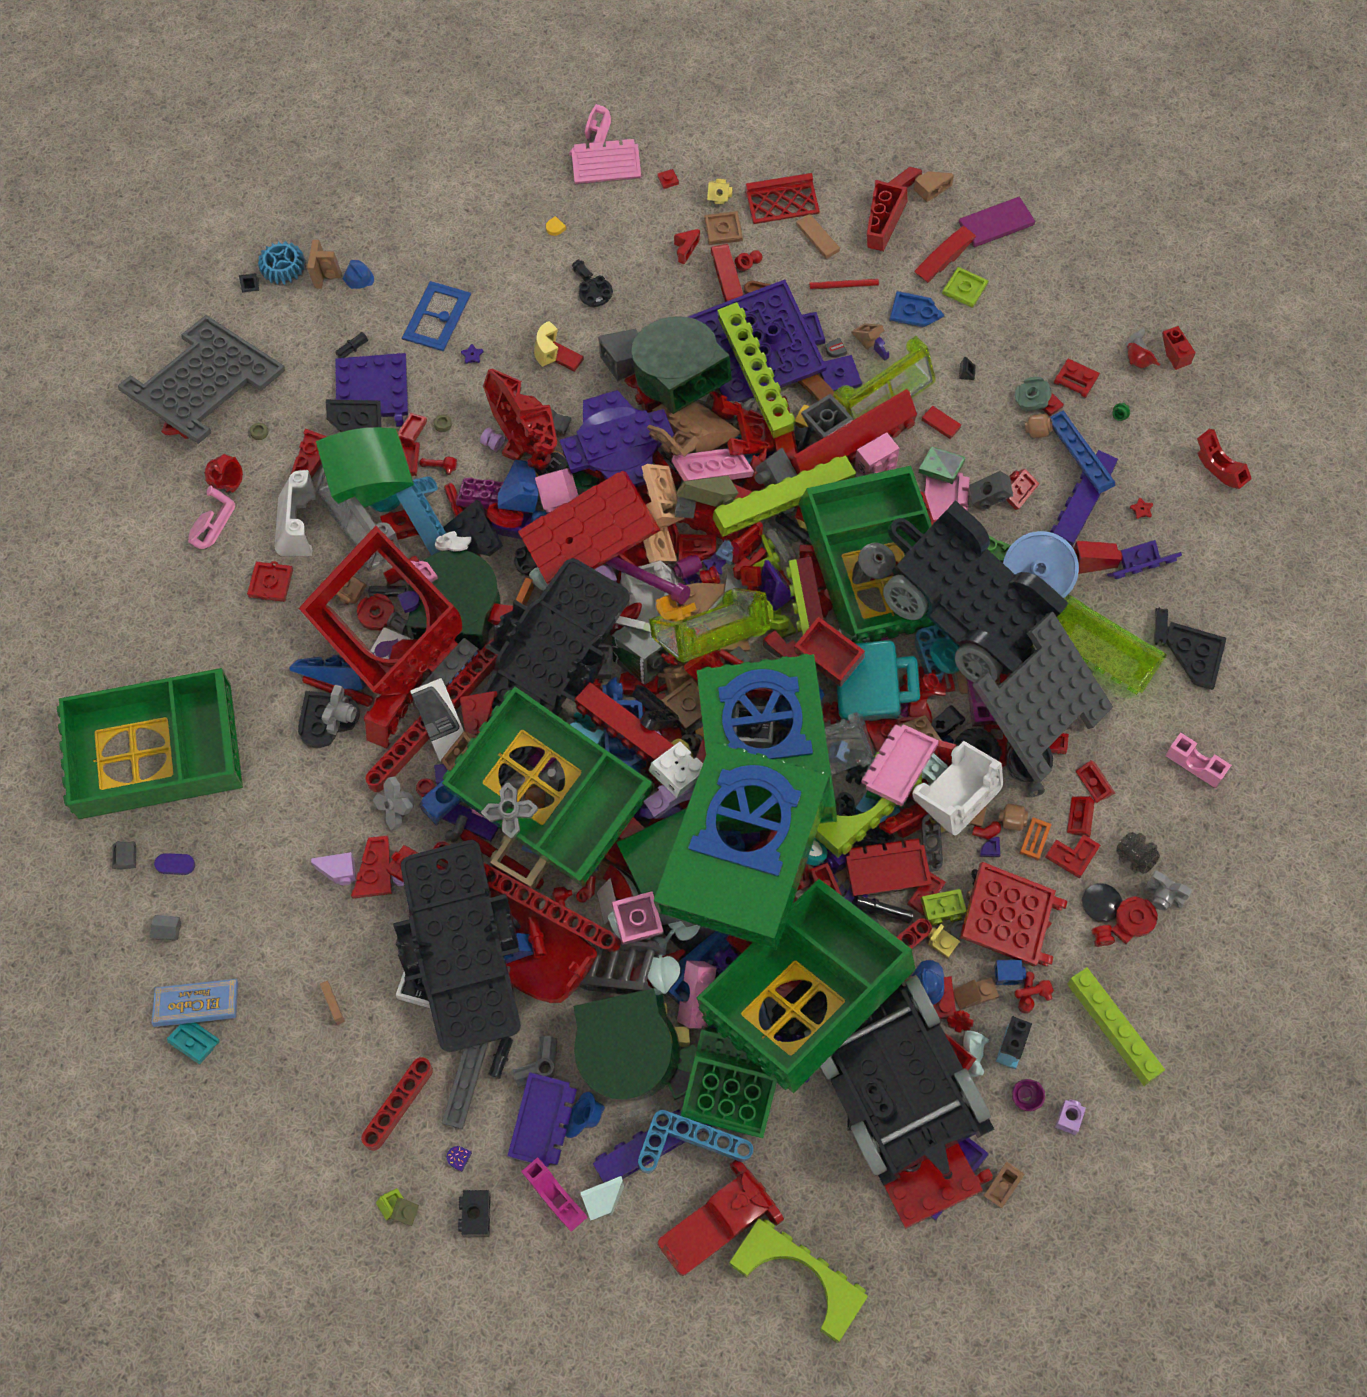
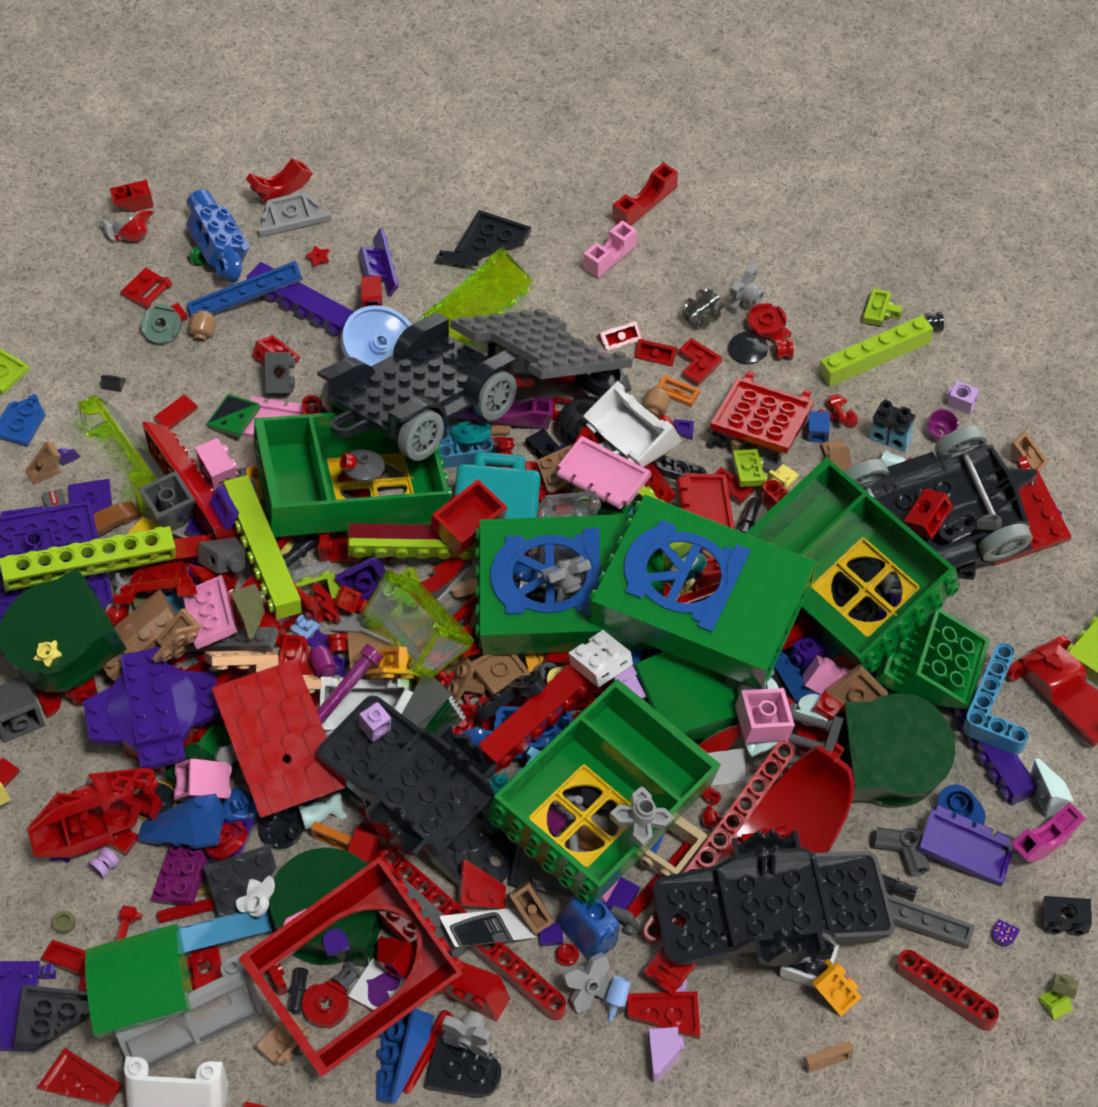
camera: 85 degrees left, 10 degrees down
(383, 827) = (616, 997): none -> light blue piece
(393, 1005) = (837, 989): none -> light orange bracket
(596, 595) = (375, 722): none -> lavender brick
(647, 350) = (46, 647): none -> light yellow plate
(664, 980) = (827, 706): none -> red plate
(684, 1009) = (856, 687): none -> medium nougat tile
(753, 725) = (567, 573): none -> light grey plant
(818, 460) = (224, 507): none -> dark purple tile
(870, 544) = (348, 461): none -> red hinge
(881, 1127) = (990, 522): none -> dark grey tile
(884, 1065) = (928, 513): none -> red brick
(1142, 419) = (216, 235): none -> blue brick
(1167, 1086) = (935, 320): none -> black wheel
(1177, 1031) = (881, 308): none -> lime hinge
(1188, 478) = (291, 213): none -> light grey wing
(1292, 800) = (659, 185): none -> red arch

